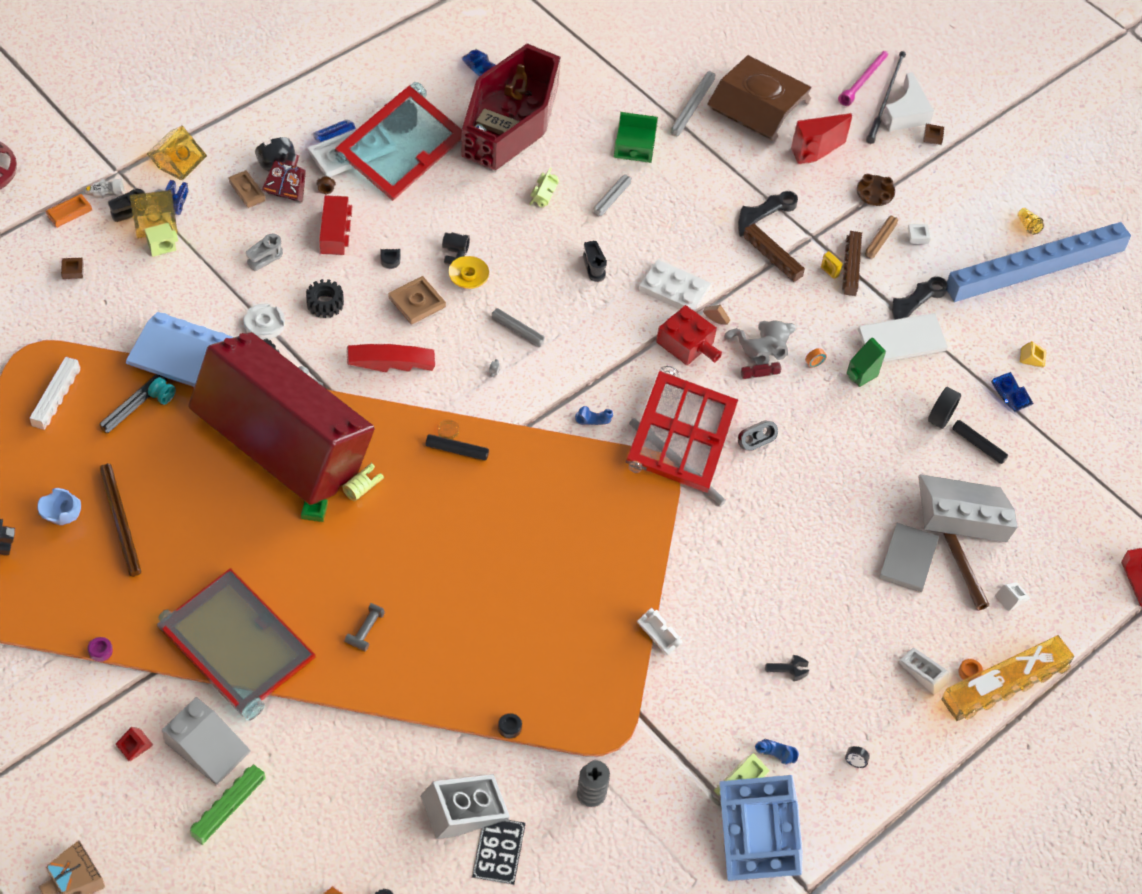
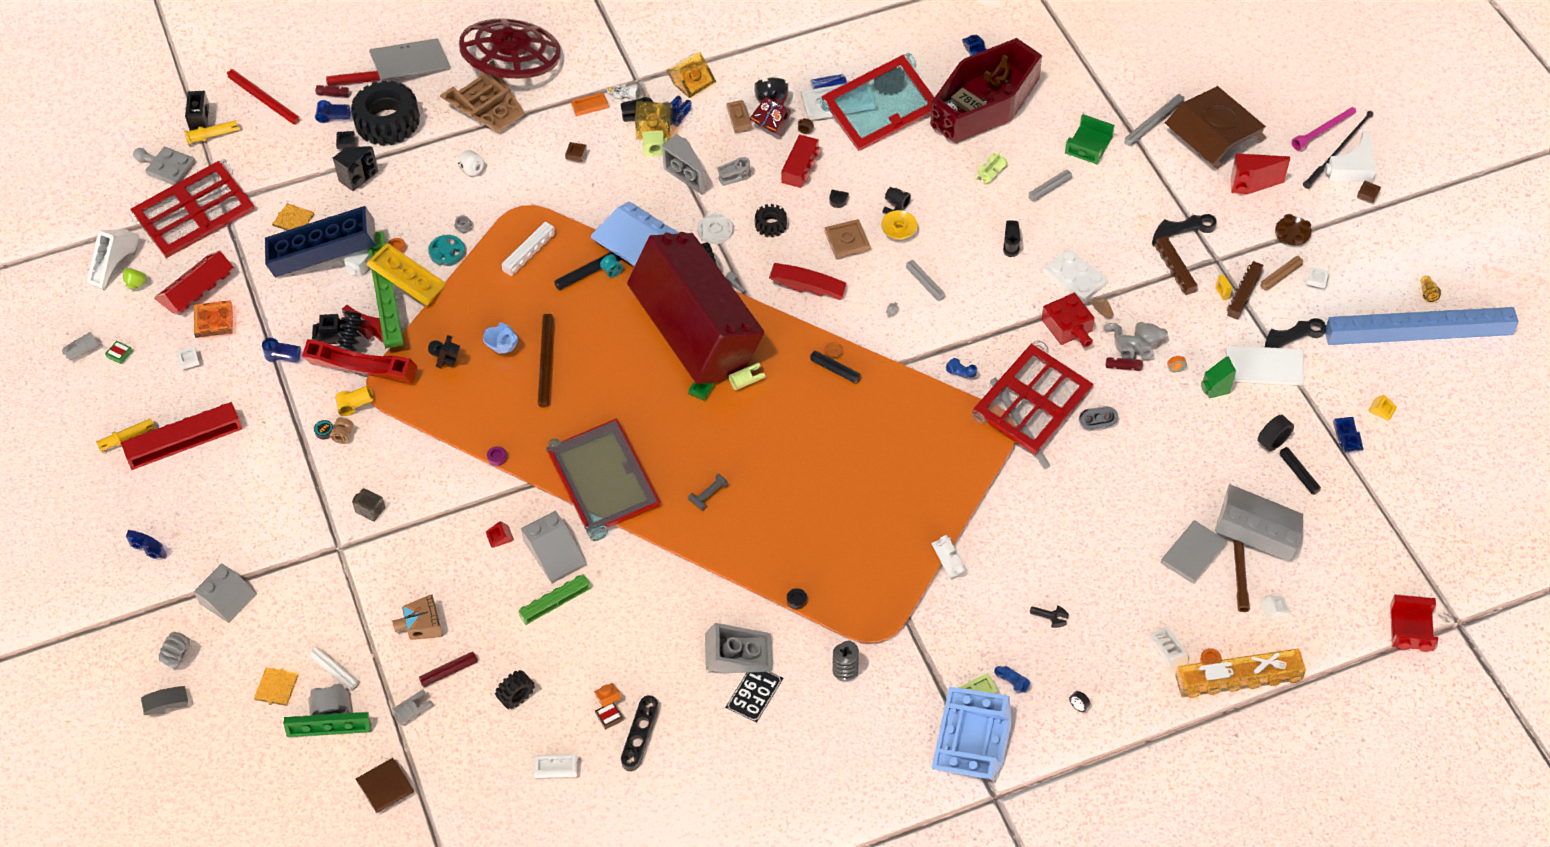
camera: 25 degrees right, 0 degrees up
(206, 255) = (683, 163): none -> light grey slope

